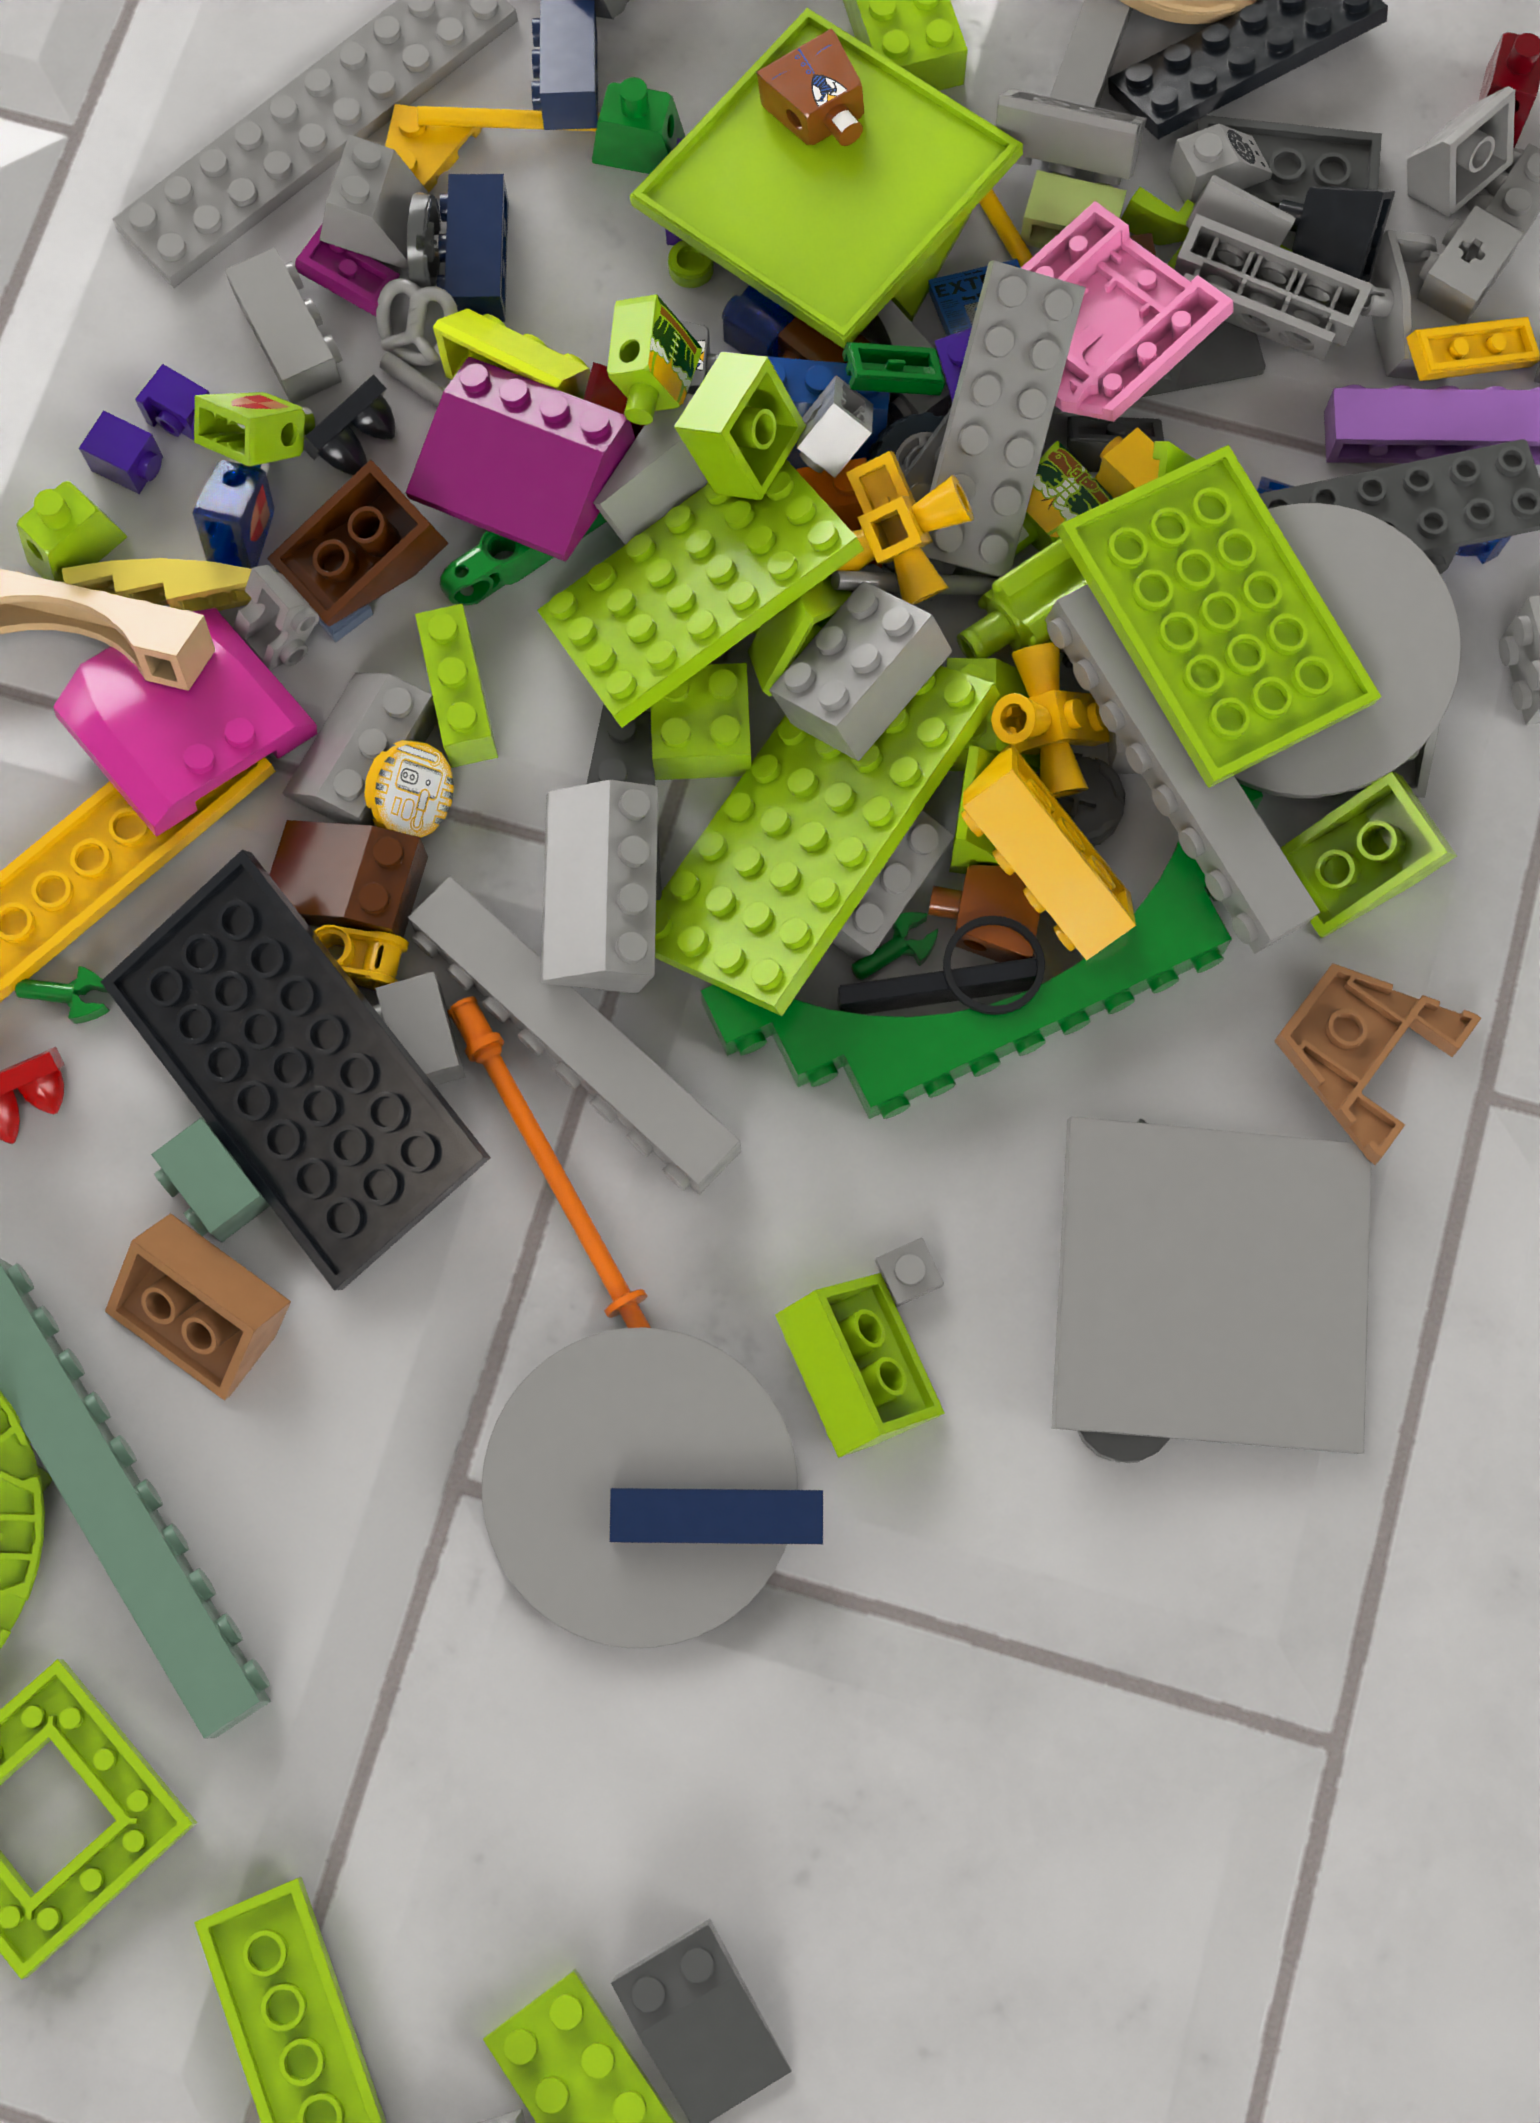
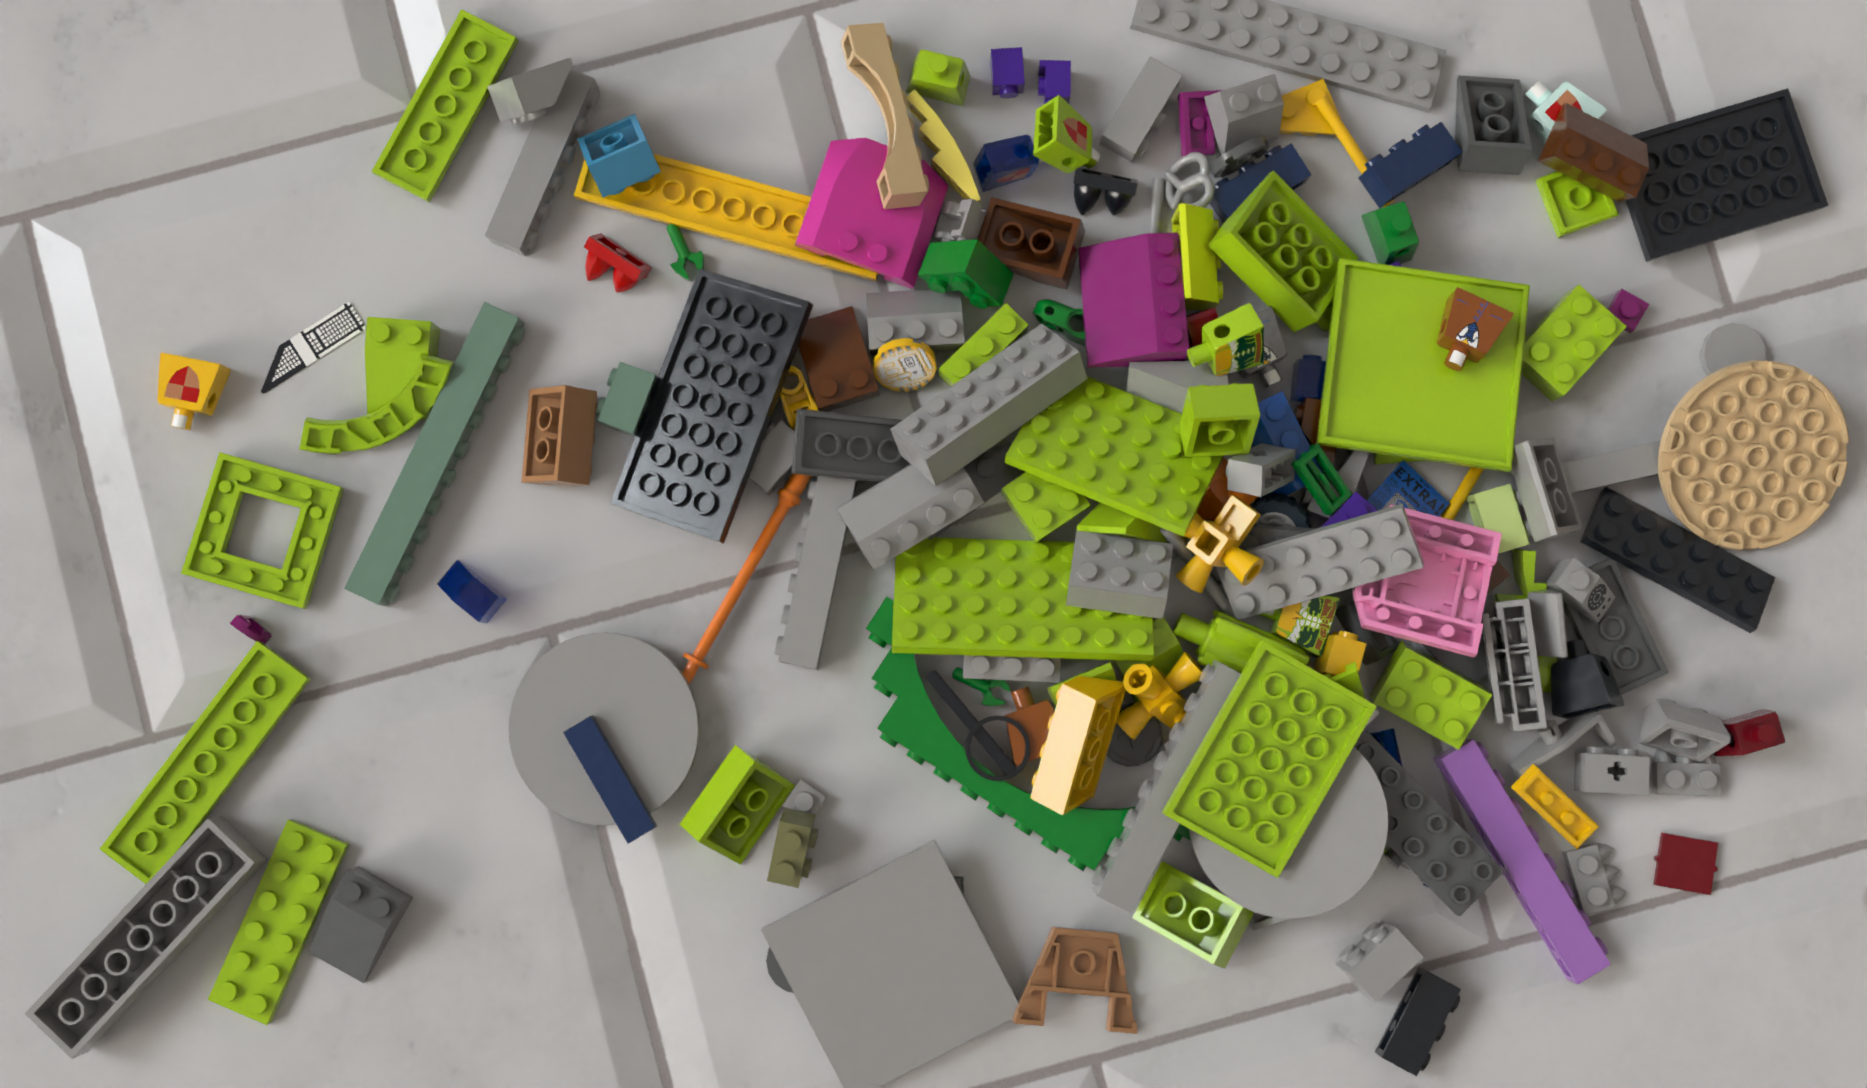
camera: 55 degrees right, 10 degrees up
(170, 1921) = (251, 628): none -> magenta tile
(329, 1560) = (471, 592): none -> clear blue slope
(335, 635) = (966, 268): none -> green brick
(470, 912) = (845, 446): none -> dark grey tile
(532, 707) = (989, 404): none -> light grey brick
(575, 259) = (1282, 252): none -> lime slope
(965, 1319) = (791, 848): none -> olive brick
(1249, 402) = (1430, 695): none -> lime brick

